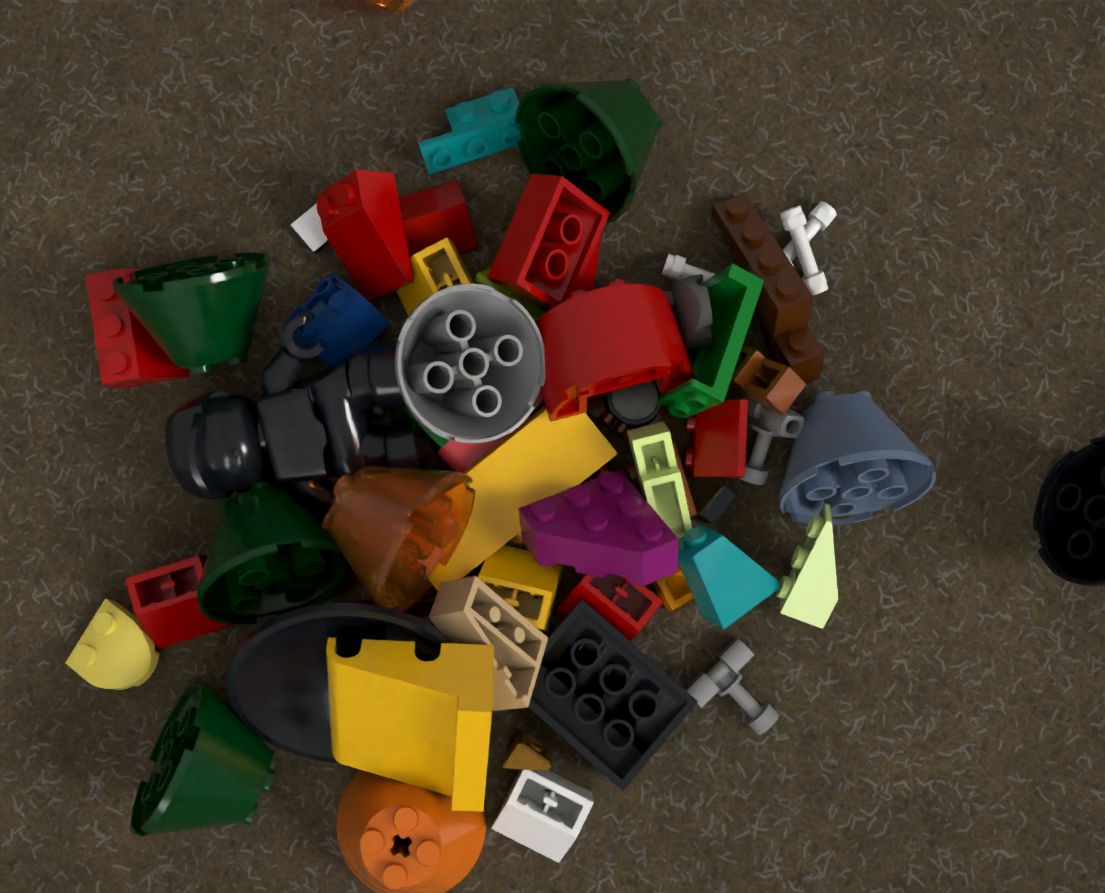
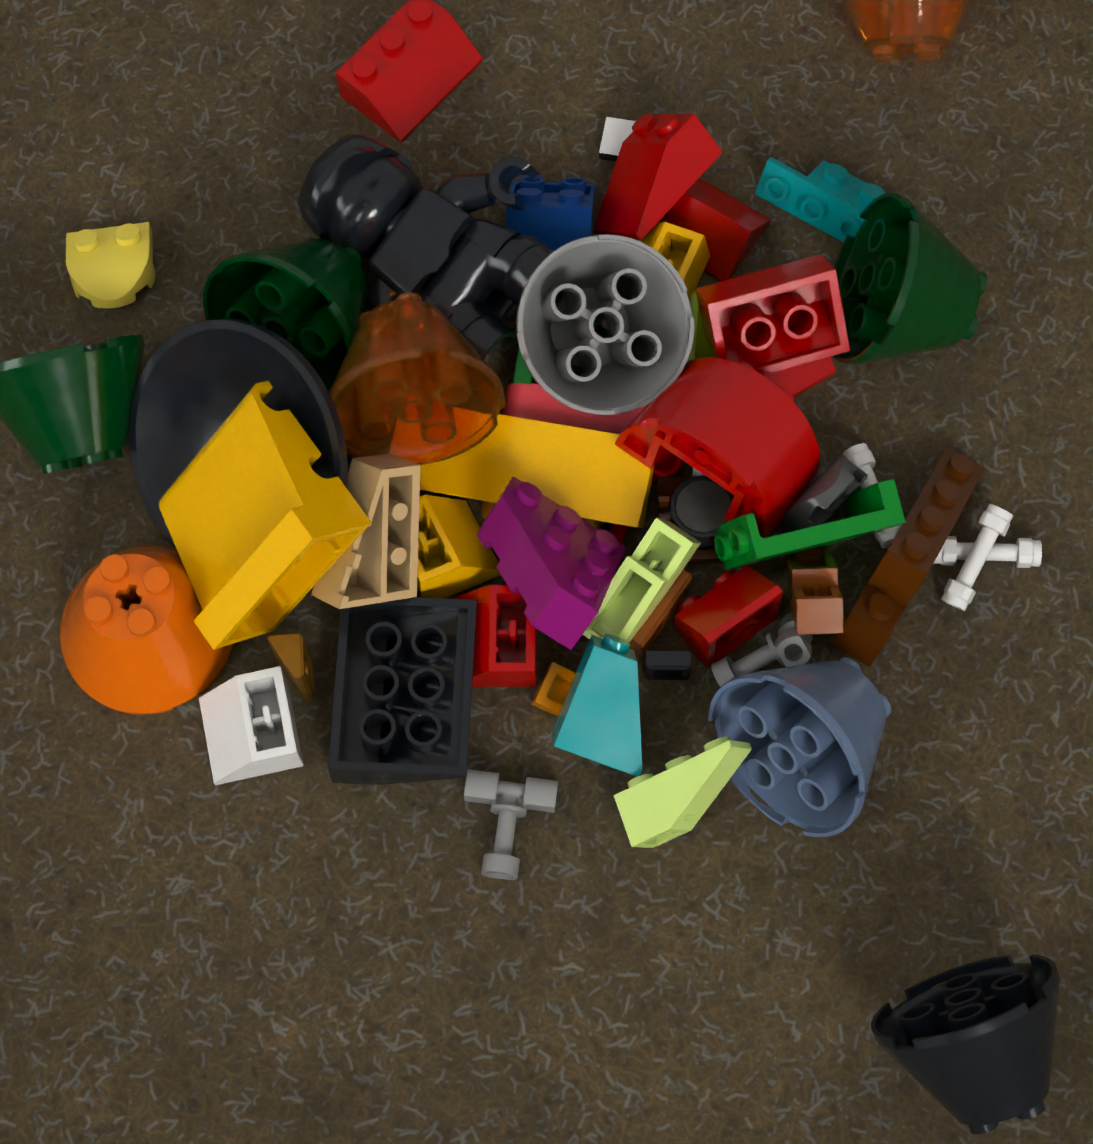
camera: 60 degrees right, 15 degrees down
(168, 602) = (181, 270): red slope -> none
(198, 308) = (466, 95): dark green cone -> none

